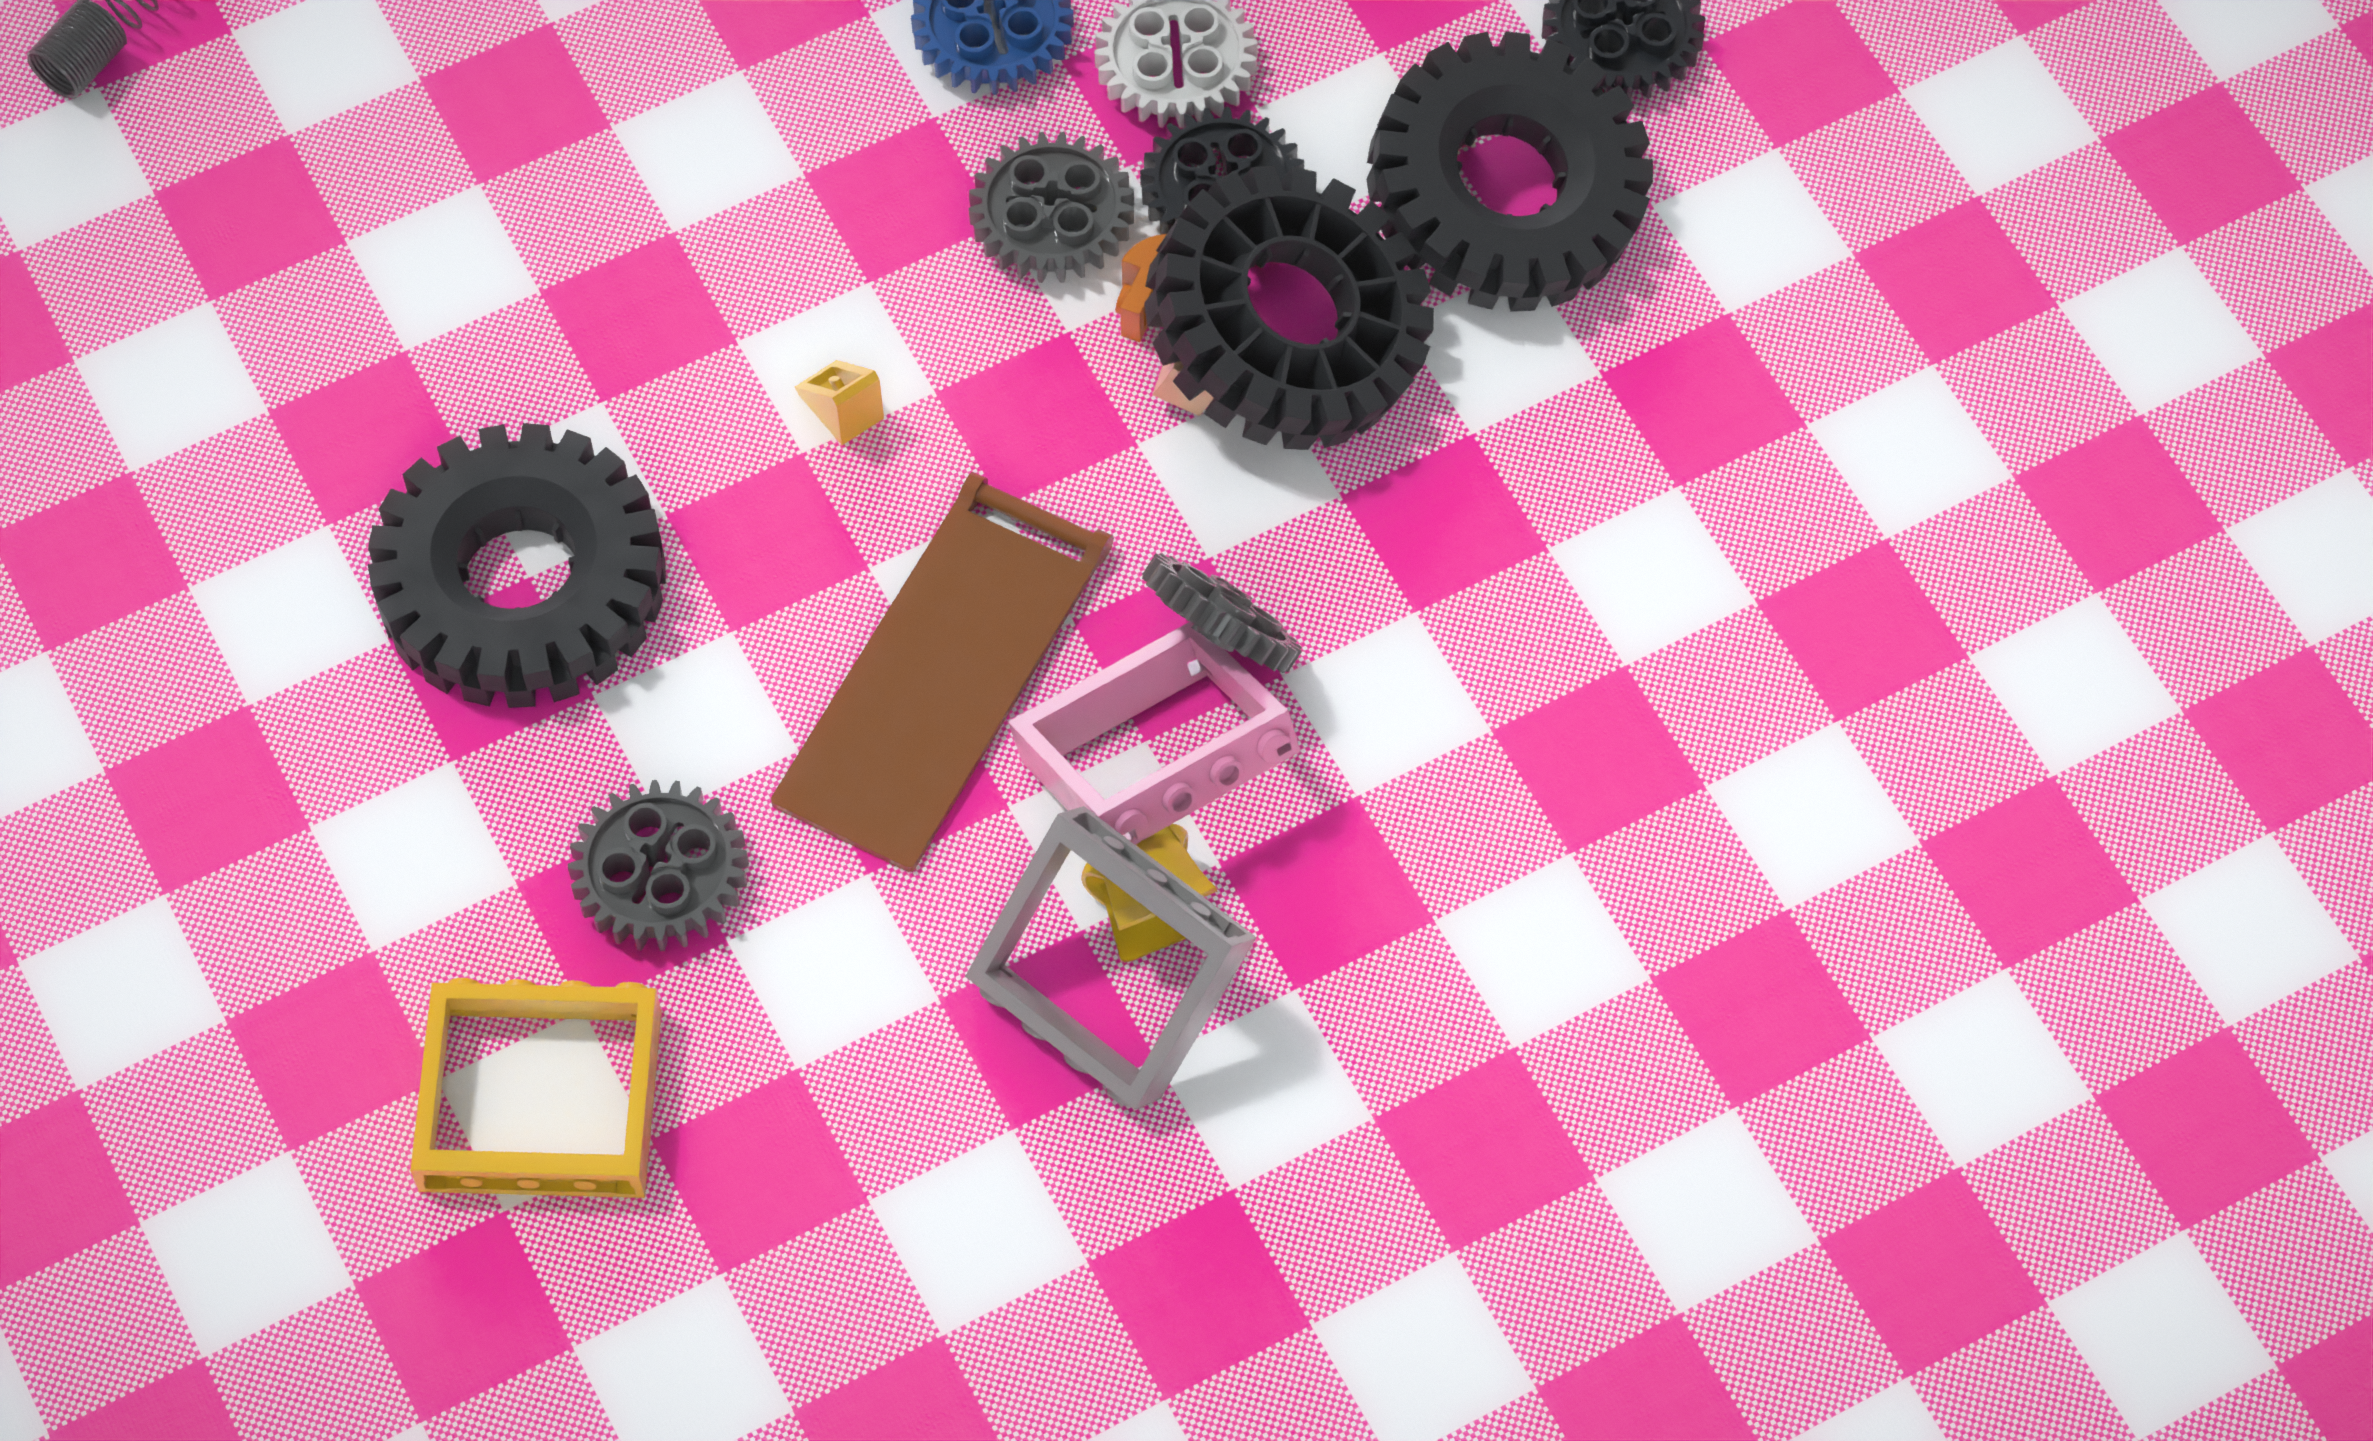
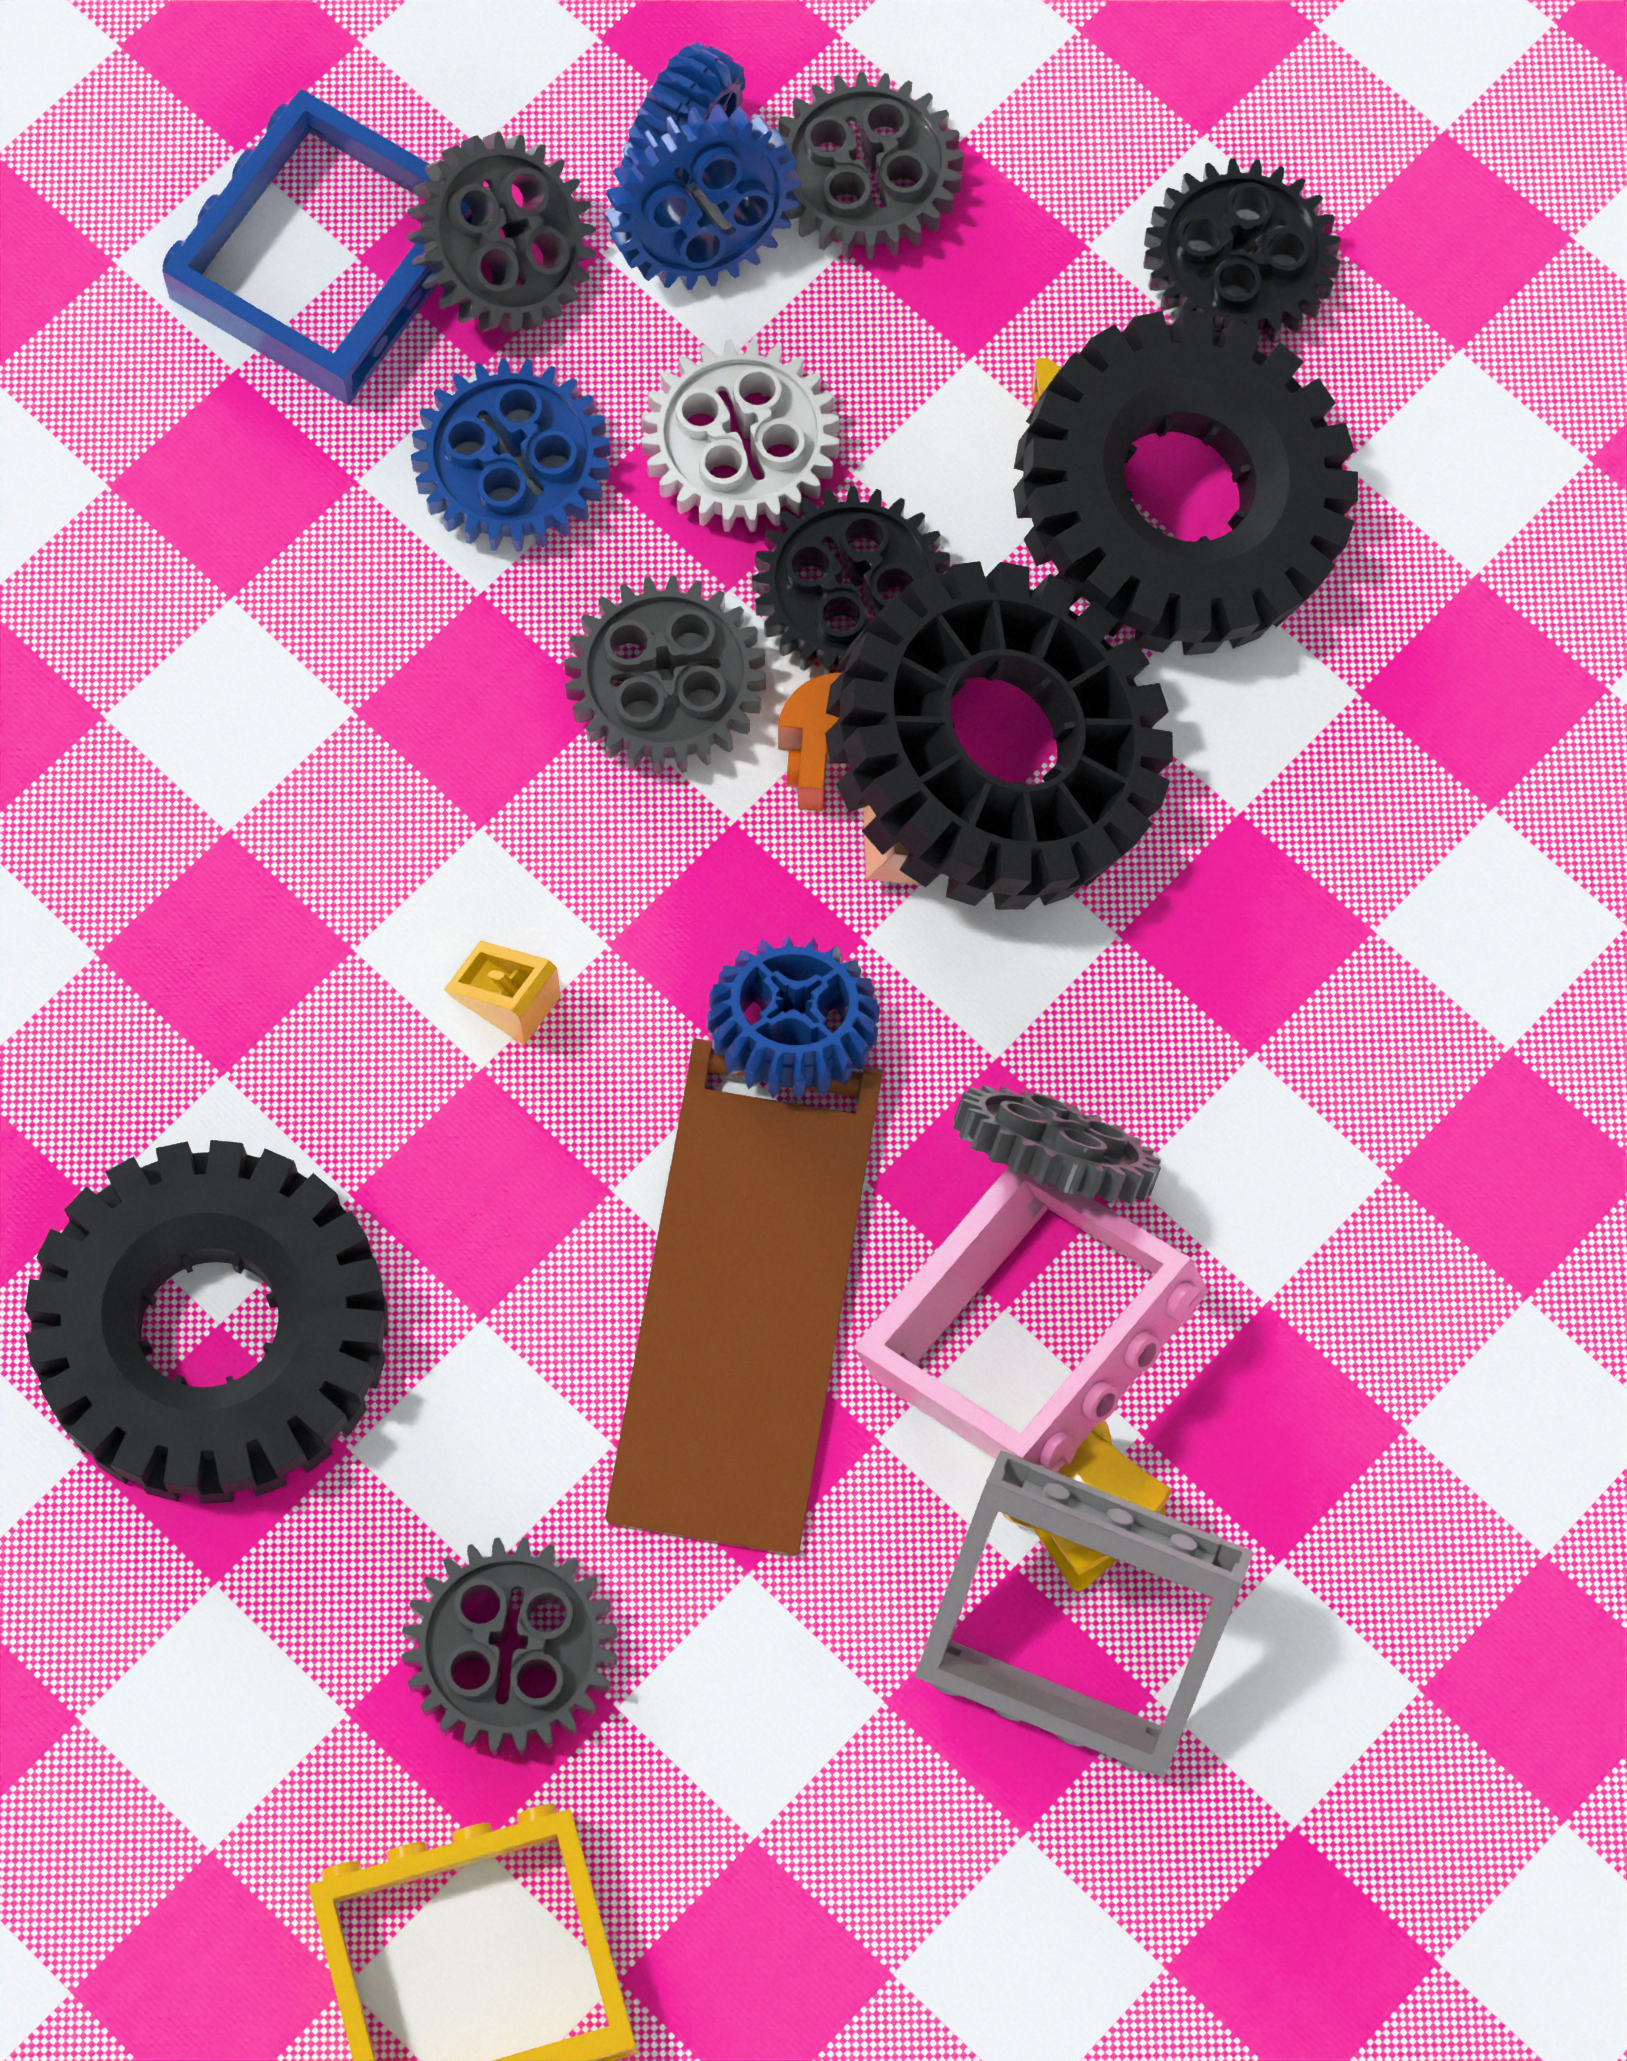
camera: 20 degrees left, 10 degrees up
(1054, 473) = (791, 1038): none -> blue gear

